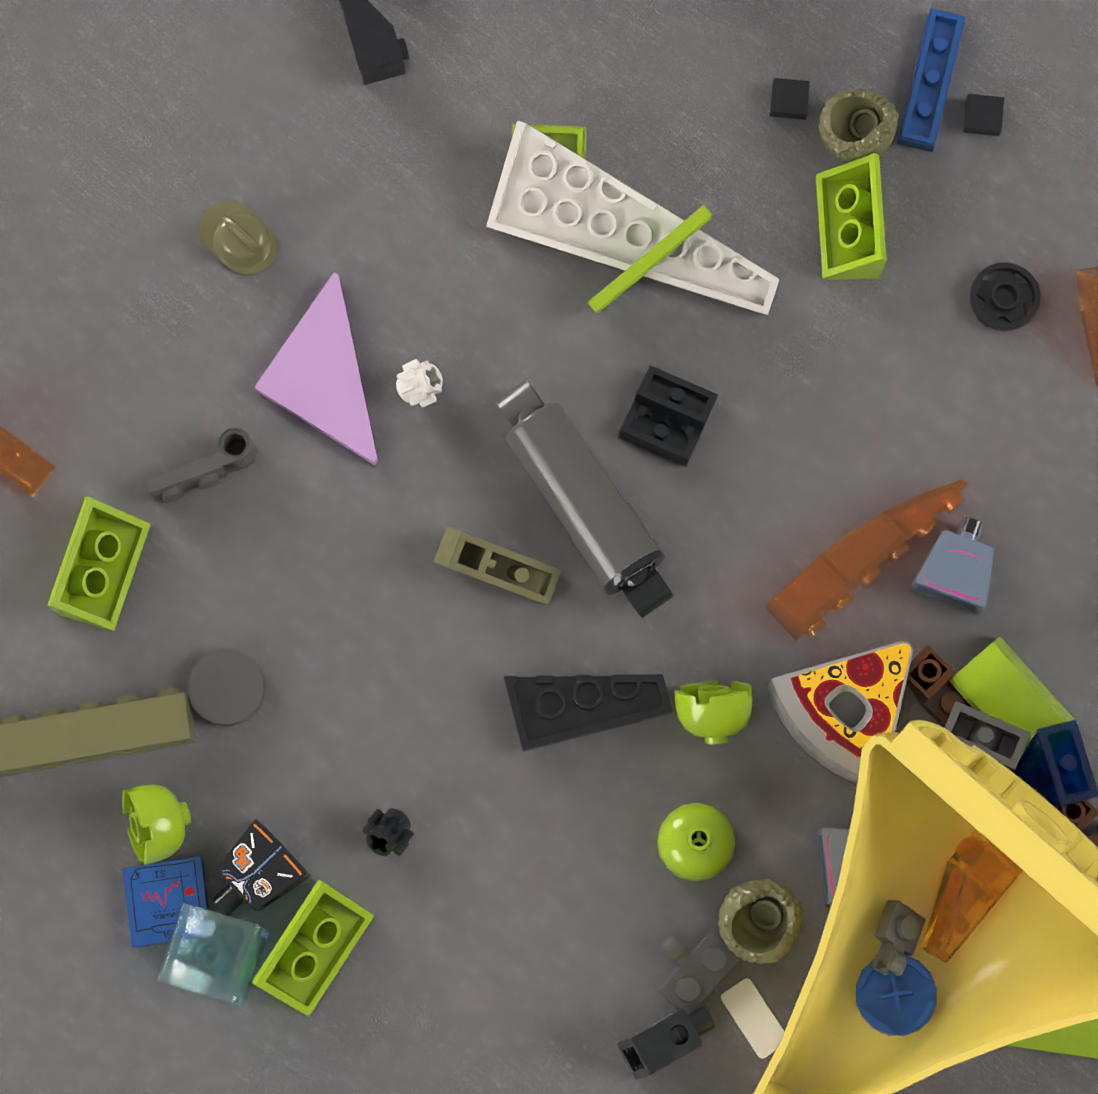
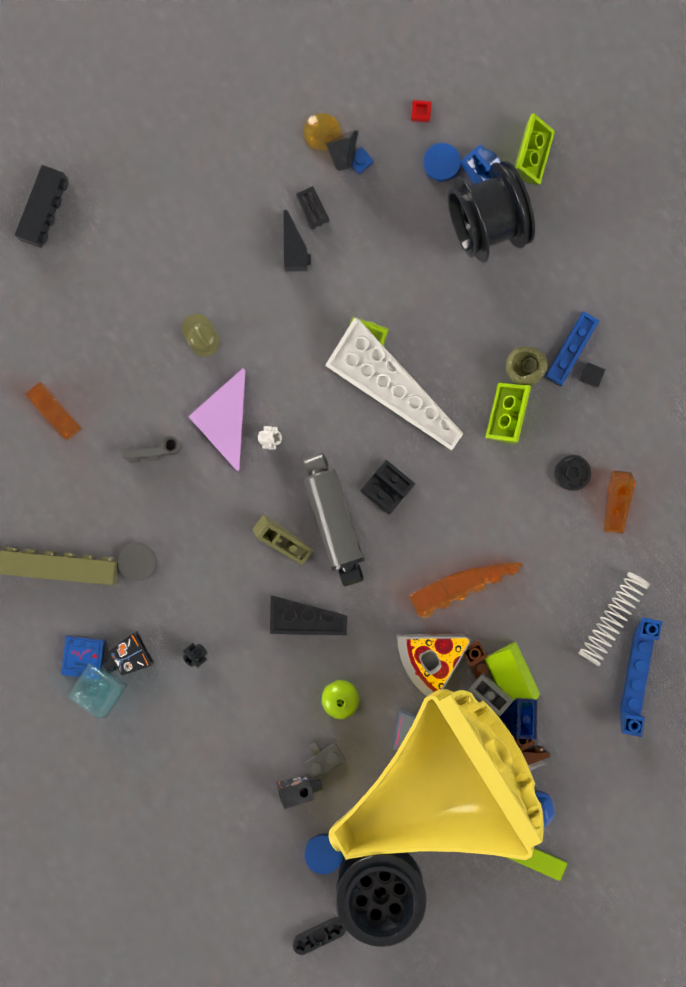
camera: 15 degrees right, 10 degrees up
(98, 565) = (90, 486): lime slope -> none
(155, 821) = (86, 619): lime cylinder -> none
(313, 948) = (145, 699): lime slope -> none
(651, 259) = (401, 407): lime tile -> none
(714, 709) = (367, 640): lime cylinder -> none
(753, 1017) = (344, 788): white sticker -> none
(760, 921) = (358, 748): olive hair -> none
(789, 98) = (497, 339): black tile -> none
(895, 1002) = (411, 803): blue tile -> none
(899, 934) = (420, 775): dark grey plate -> none
(957, 568) = (505, 603): sand blue torso -> none
(968, 890) = (453, 772): clear orange slope -> none

